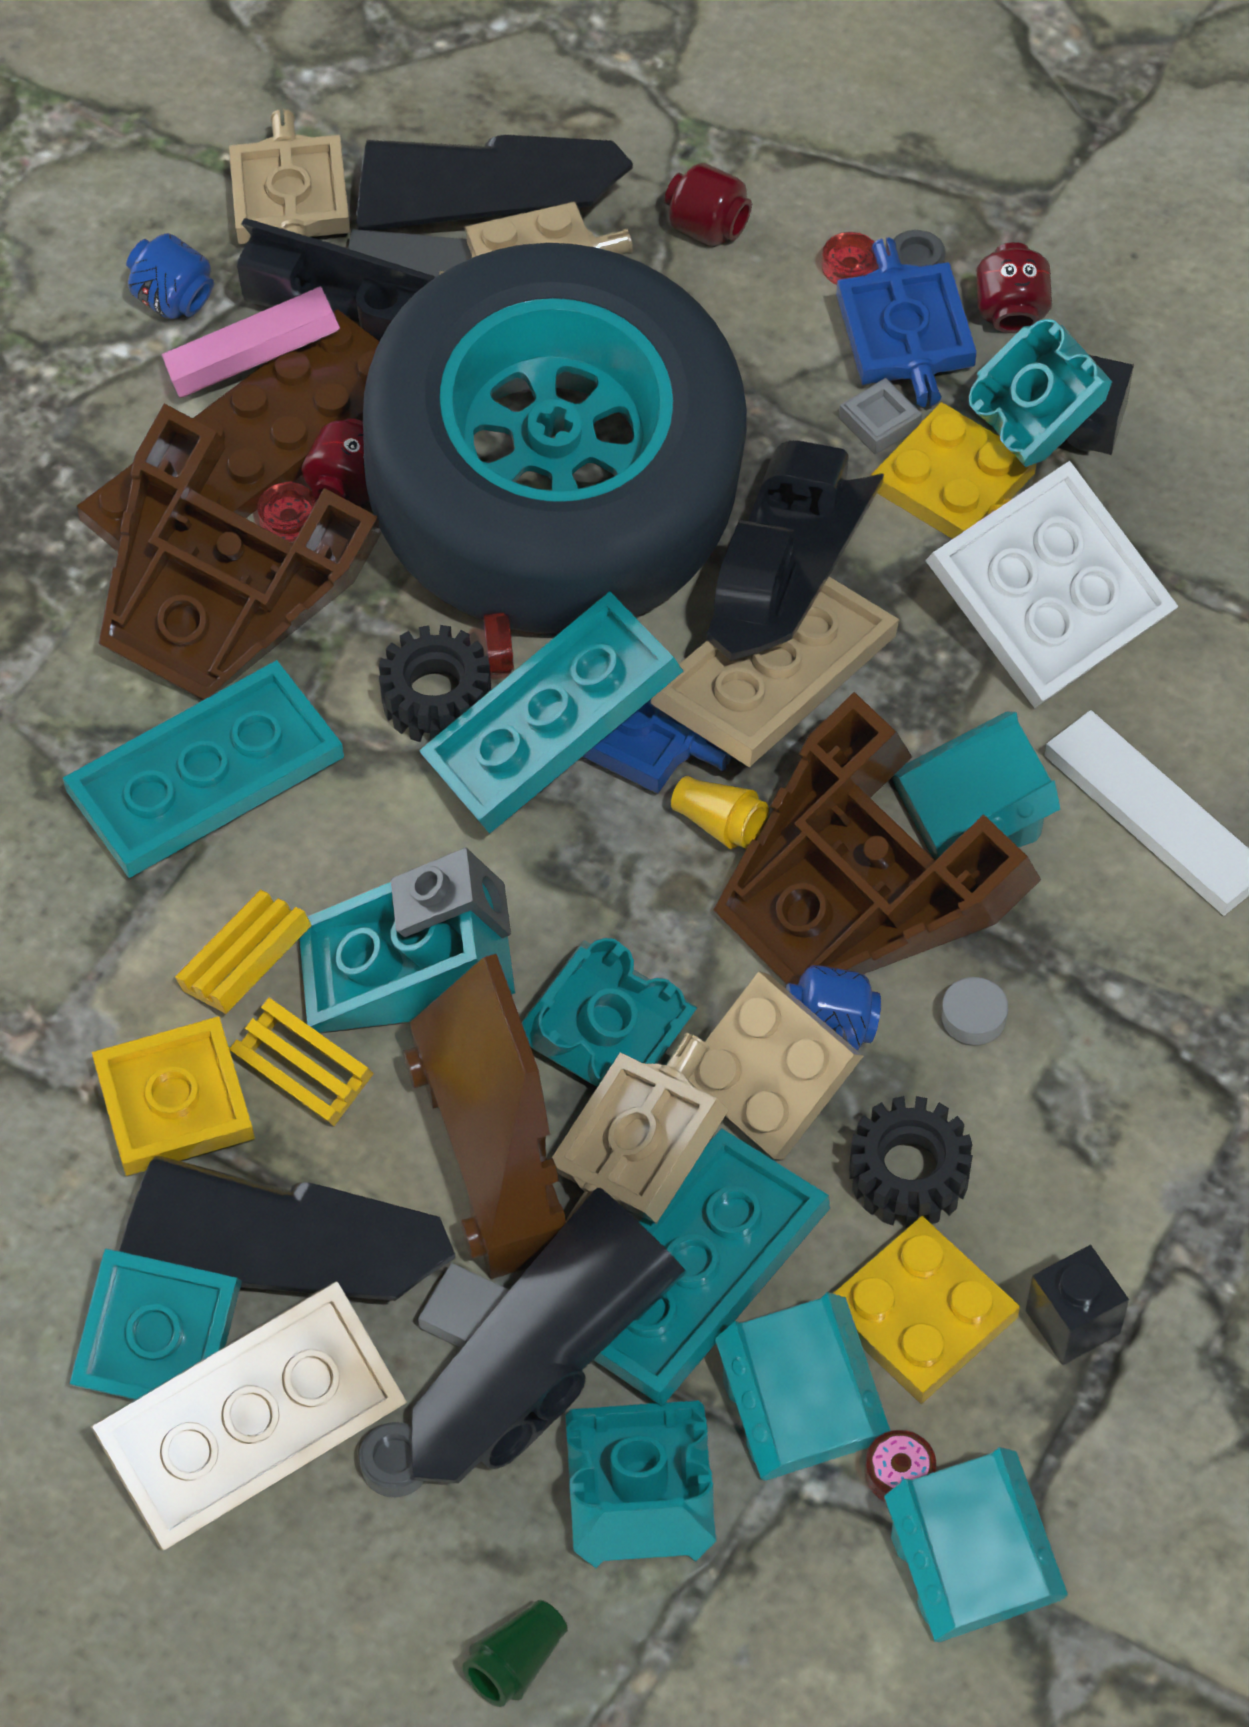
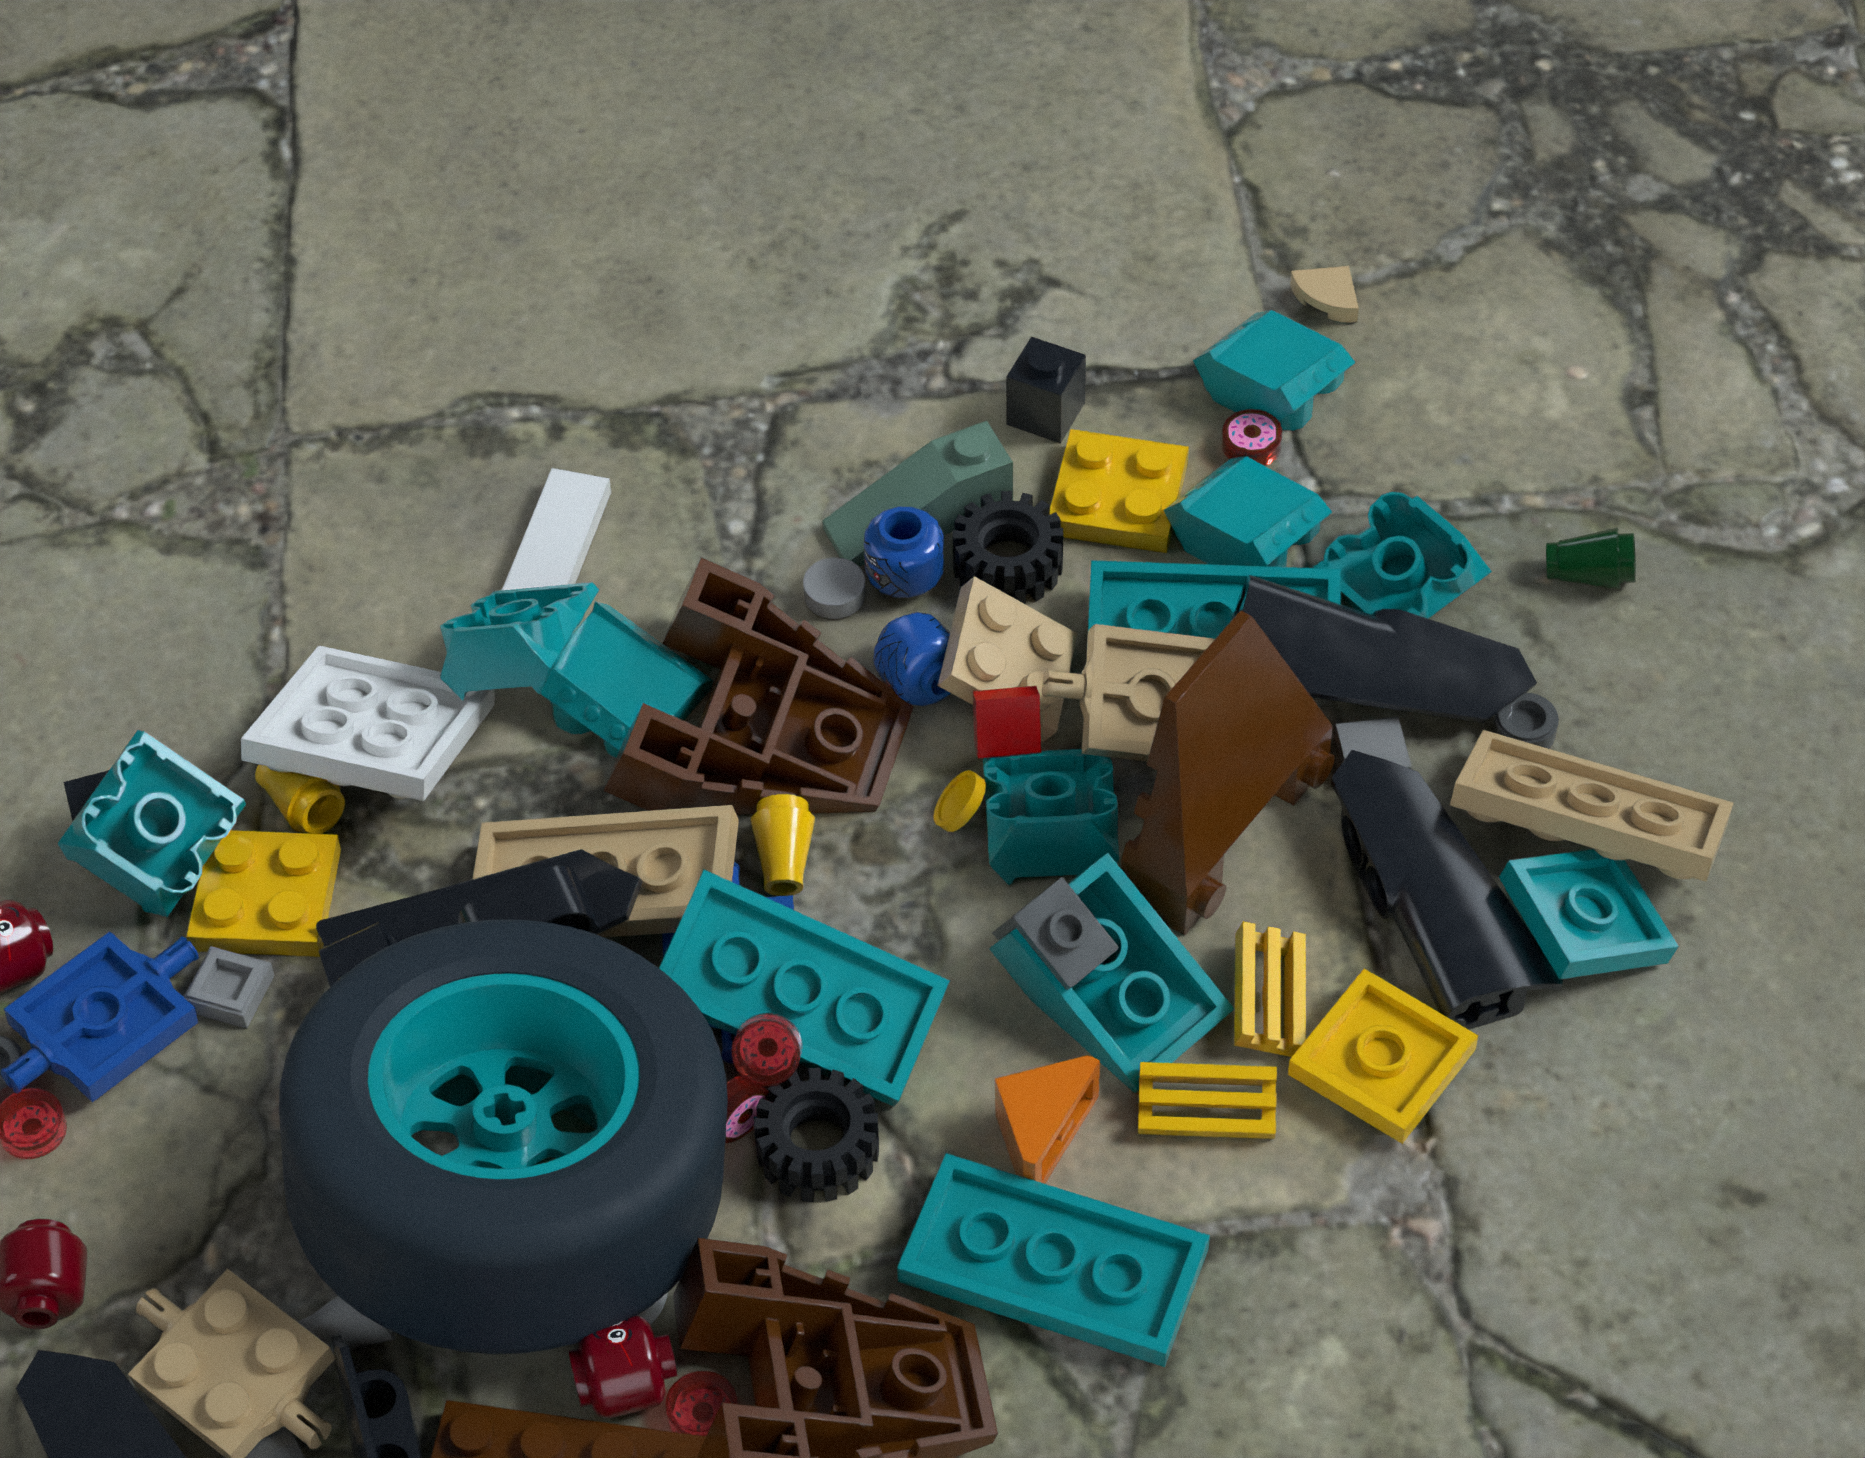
camera: 125 degrees left, 5 degrees down
(322, 822) = (1044, 1111): none -> orange slope
(510, 657) = (767, 1049): none -> clear red tile
(661, 954) = (959, 801): none -> yellow piece
(704, 1013) = (1007, 721): none -> red tile
(954, 1059) = (904, 552): none -> blue head
(1018, 1134) = (934, 479): none -> sand green slope
(1043, 1678) = (1327, 290): none -> tan tile
(1064, 708) = (512, 637): none -> teal slope

